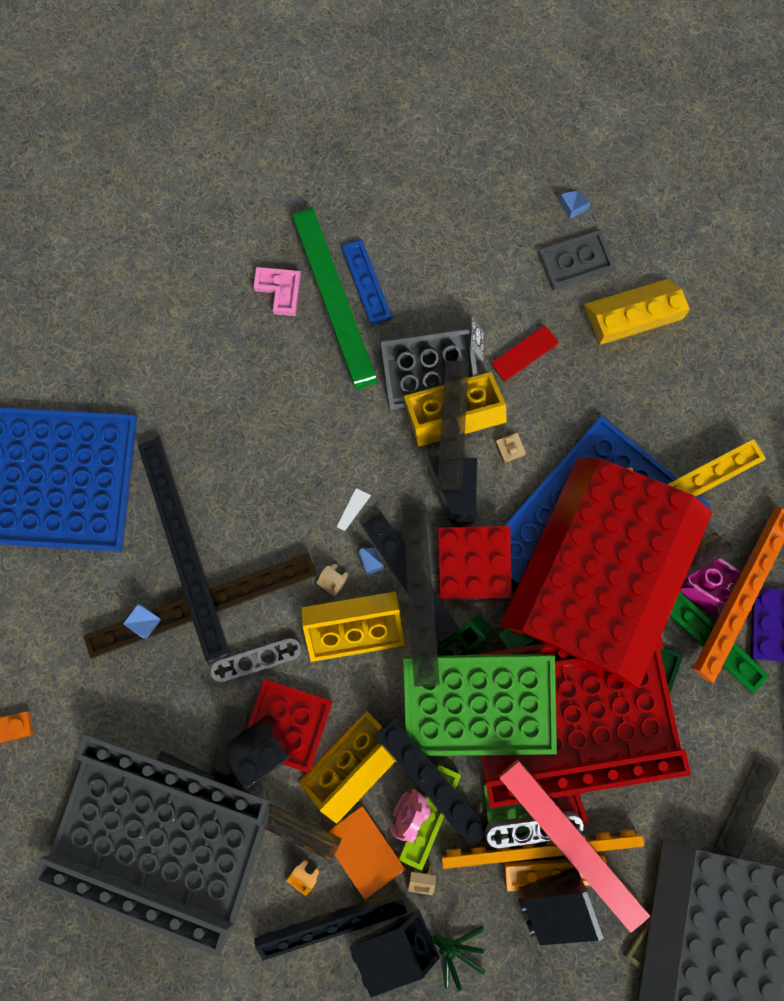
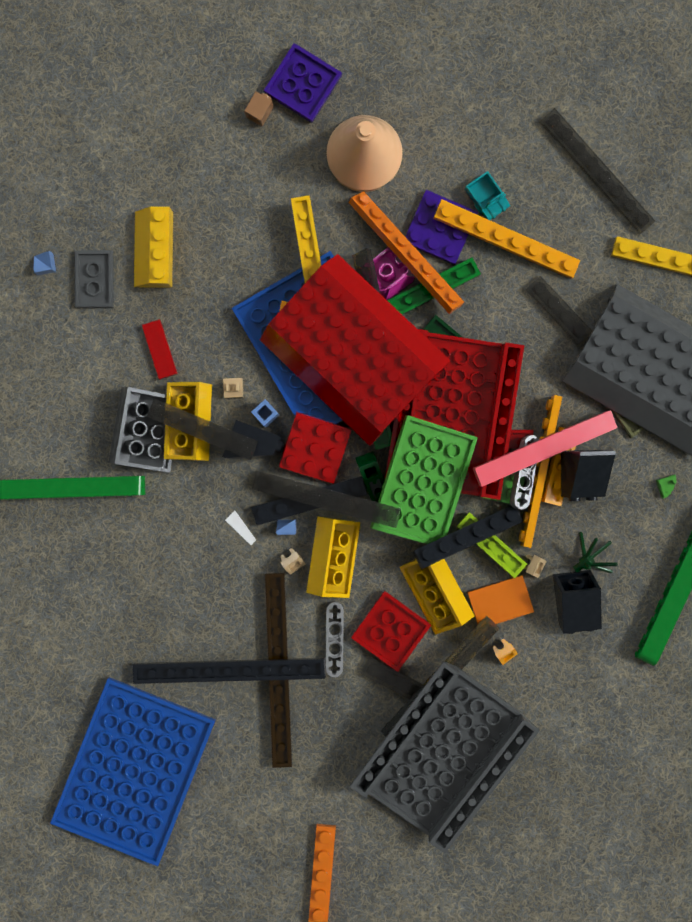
camera: 70 degrees left, 10 degrees up
(142, 621) = (277, 719): medium blue slope -> none
(257, 752) = (404, 659): black slope -> none
(284, 285) = (37, 524): bright pink plate -> none
(330, 925) = (543, 641): black plate -> none
(366, 282) = (55, 456): blue tile -> none
(410, 814) = (484, 559): bright pink plate -> none
(477, 339) = (137, 384): sticker -> none
(495, 492) = (265, 413): none -> medium blue brick

